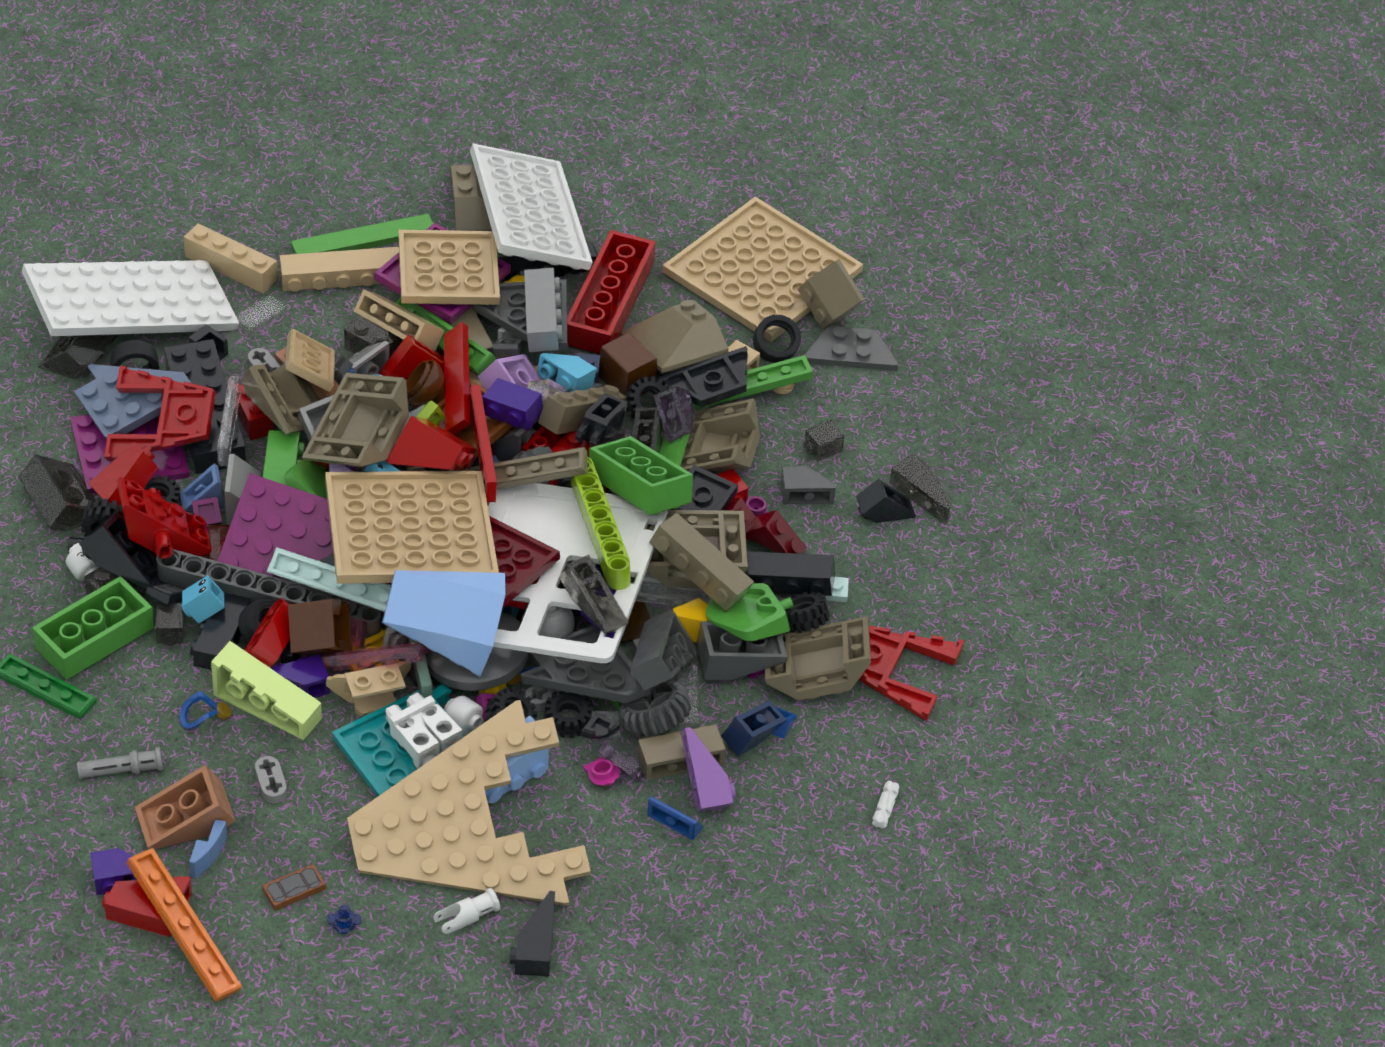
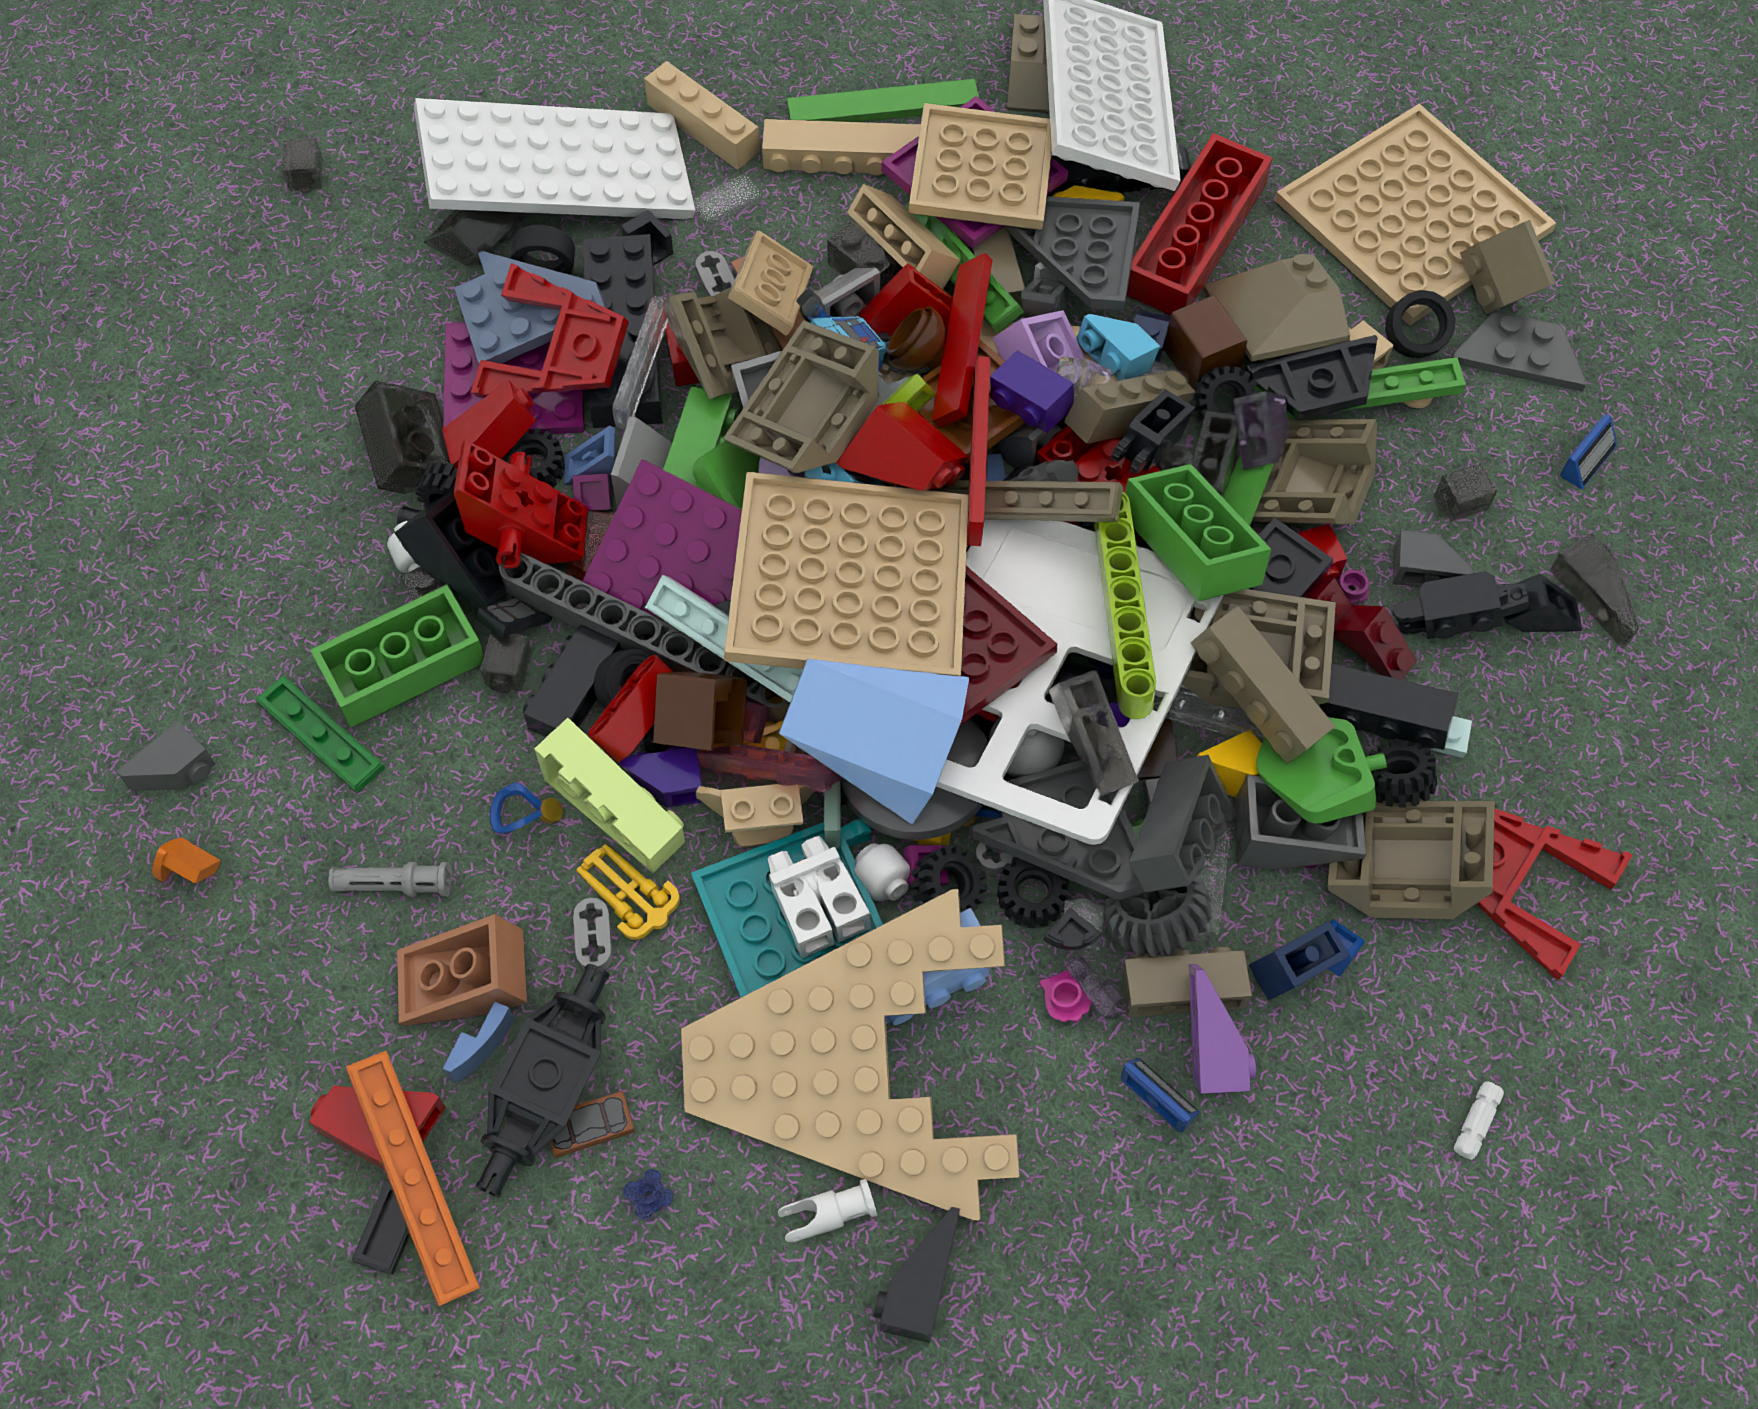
camera: 15 degrees right, 15 degrees up
(110, 867) = (330, 1054): dark purple slope -> none
(169, 965) = (383, 1235): none -> black tile
(202, 599) = (551, 637): medium azure brick -> none
(258, 860) = (542, 1079): none -> black plate
(297, 769) = (635, 927): none -> yellow piece
(542, 309) = (1097, 248): light grey brick -> none
(828, 507) = (1460, 606): none -> black hinge
(906, 407) = (1590, 453): none -> slope

